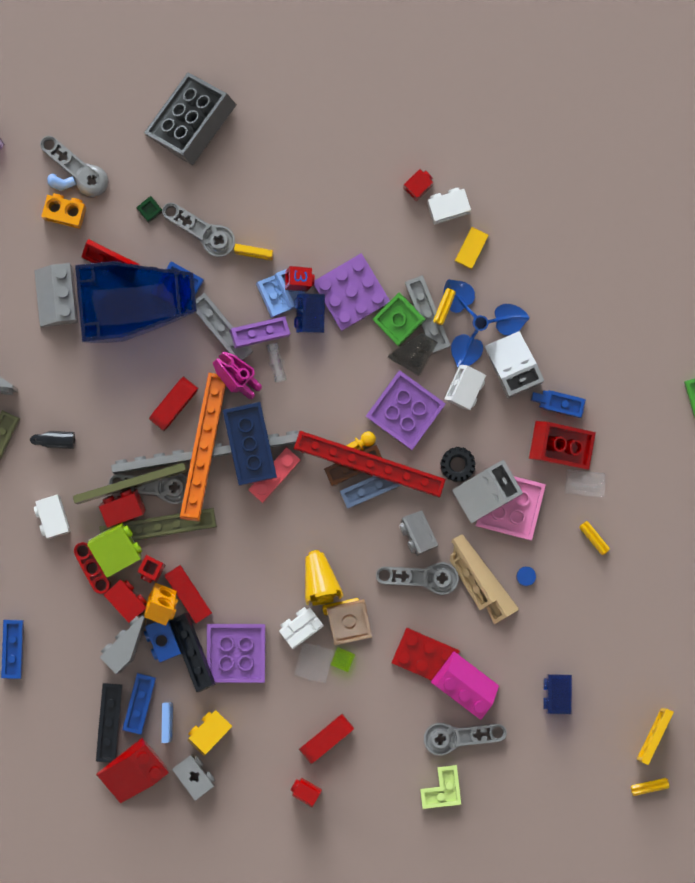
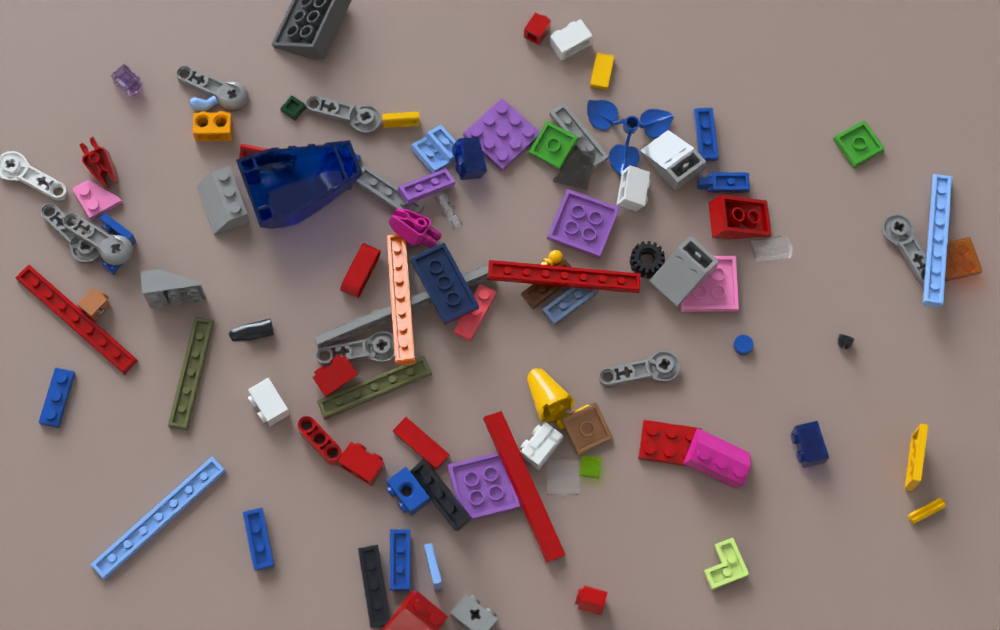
camera: 15 degrees left, 15 degrees down
(115, 549) = (338, 414): lime piece -> none
(123, 650) = (369, 511): light grey slope -> none
(130, 483) = (340, 347): olive tile -> none
(151, 569) = (378, 425): red brick -> none
(161, 604) = (397, 454): light orange brick -> none
(209, 732) = (478, 568): yellow brick -> none
(273, 664) = (524, 487): none -> red tile
(299, 278) = (450, 130): red brick -> none
(326, 738) = (596, 545): red beam -> none
(418, 532) = (628, 327): light grey slope -> none
(444, 306) = (592, 126): yellow axle -> none
(457, 737) = (726, 510): light grey beam -> none
(480, 581) = (701, 360): tan wedge -> none
(556, 345) = (706, 133): none -> blue plate
(594, 538) = (796, 294): yellow axle -> none
(626, 598) = (844, 339): none -> black hinge

